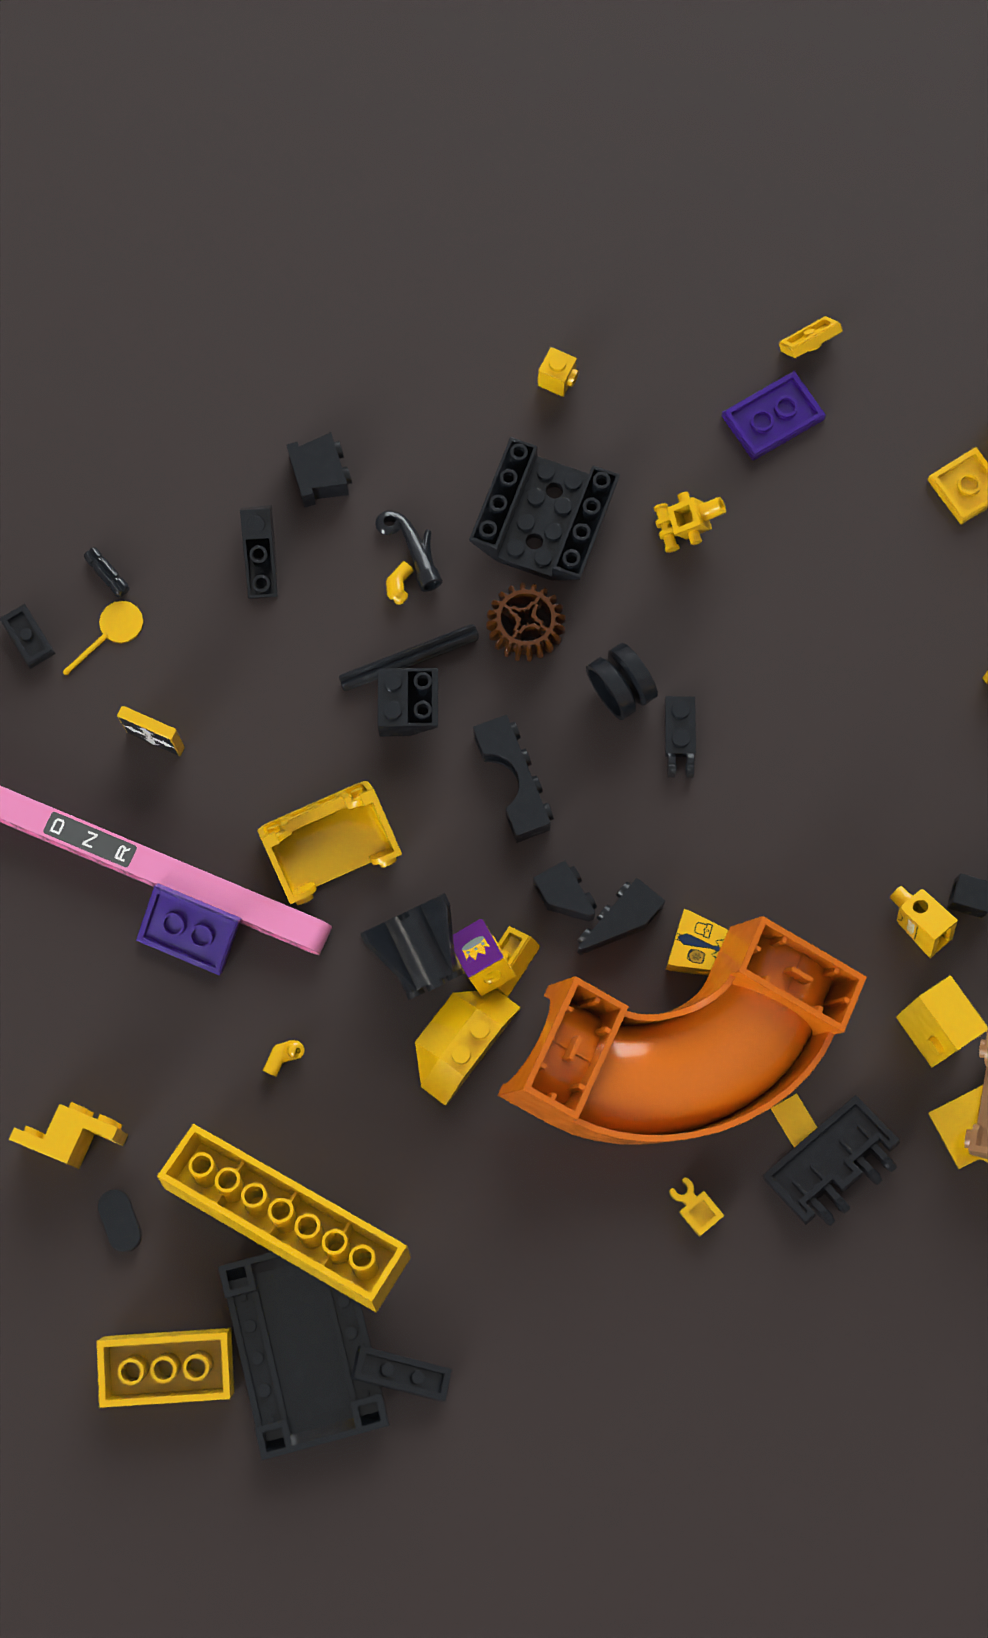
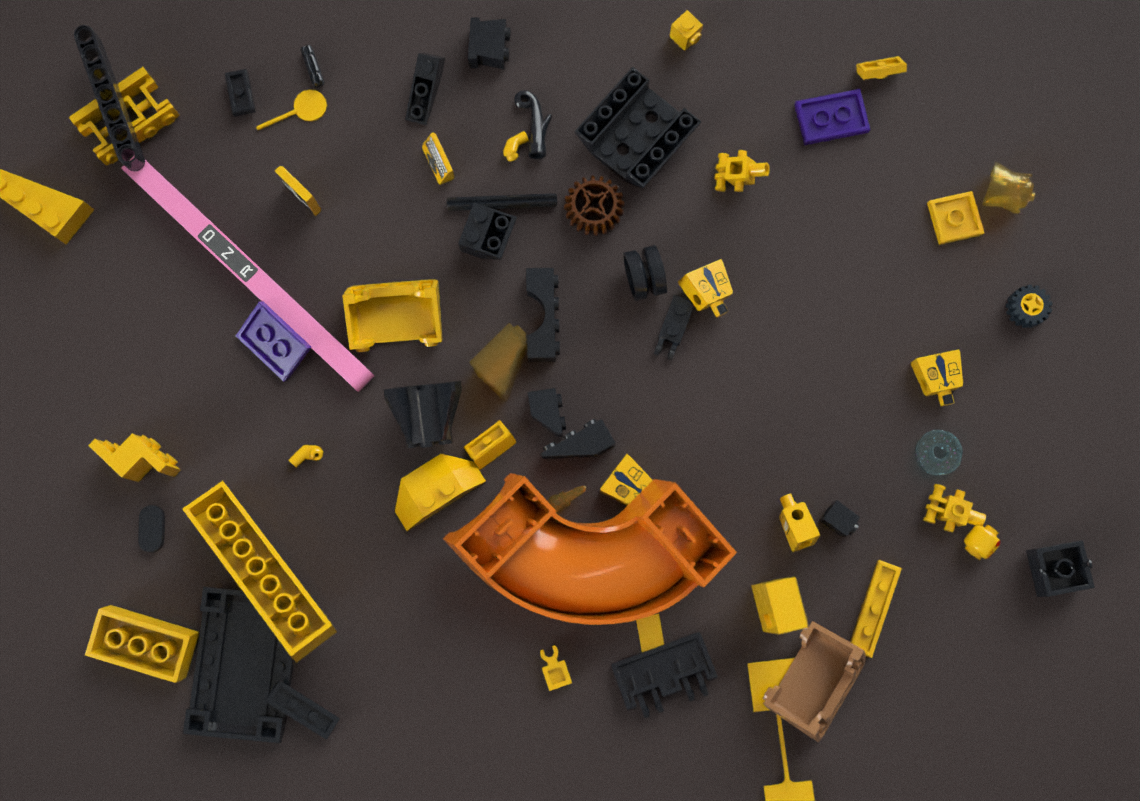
camera: 20 degrees right, 5 degrees up
(309, 632) = (437, 159): none -> slope
(482, 957) = (468, 436): piece -> none
(484, 851) = (501, 360): none -> clear yellow slope
(626, 995) = (559, 501): none -> clear yellow bar
(704, 672) = (708, 287): none -> yellow torso

